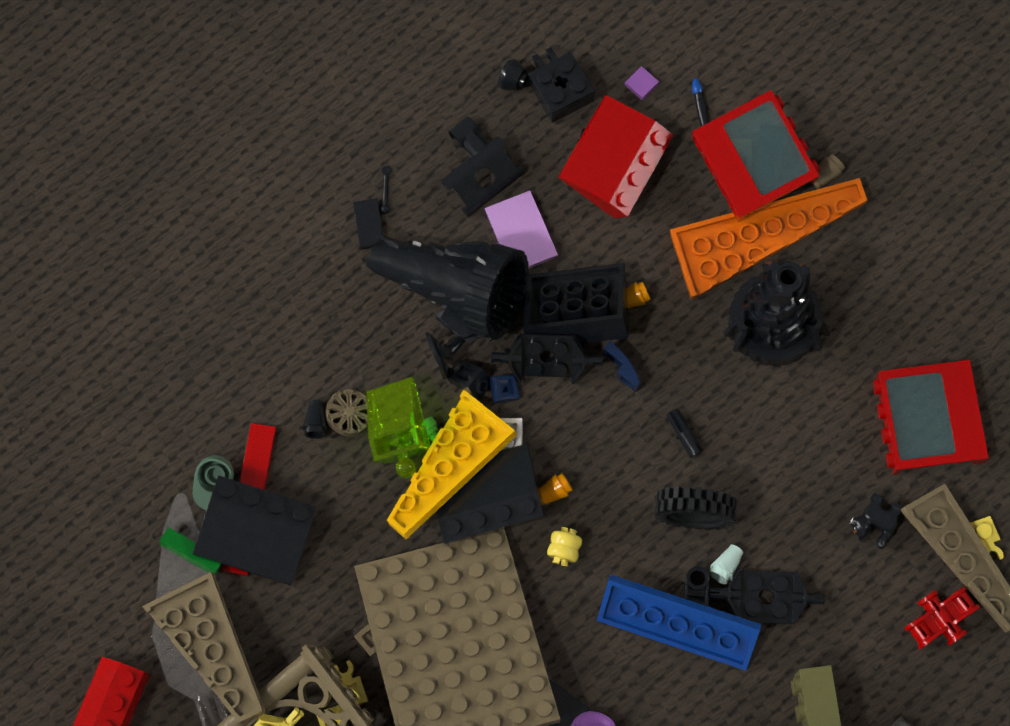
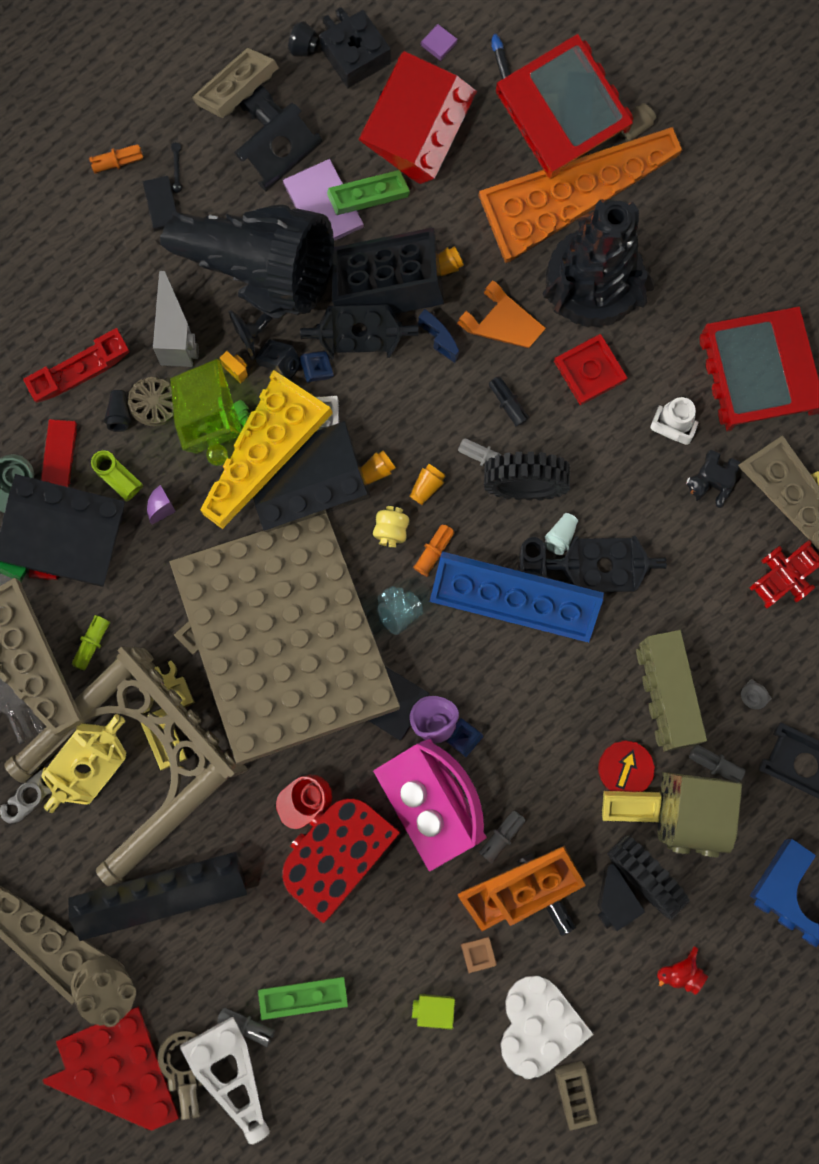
camera: 15 degrees left, 5 degrees up
(275, 637) = (90, 642): none -> lime axle
(282, 376) = (78, 369): none -> red slope
(311, 481) = (116, 476): none -> lime piece
(330, 179) = (116, 158): none -> orange axle
(348, 512) = (159, 505): none -> medium lavender brick
(372, 354) = (172, 337): none -> light grey slope
(427, 383) = (235, 366): none -> light orange plate
(446, 114) = (235, 82): none -> dark tan plate
(564, 225) = (368, 192): none -> bright green plate
(566, 626) = (398, 609): none -> clear light blue piece
(601, 508) = (427, 484): none -> light orange cone
(603, 571) = (434, 550): none -> orange axle
(652, 480) = (476, 451): none -> light grey axle
(686, 356) = (505, 322): none -> orange flag
(765, 407) = (590, 369): none -> red plate
(844, 461) = (675, 420): none -> white piece

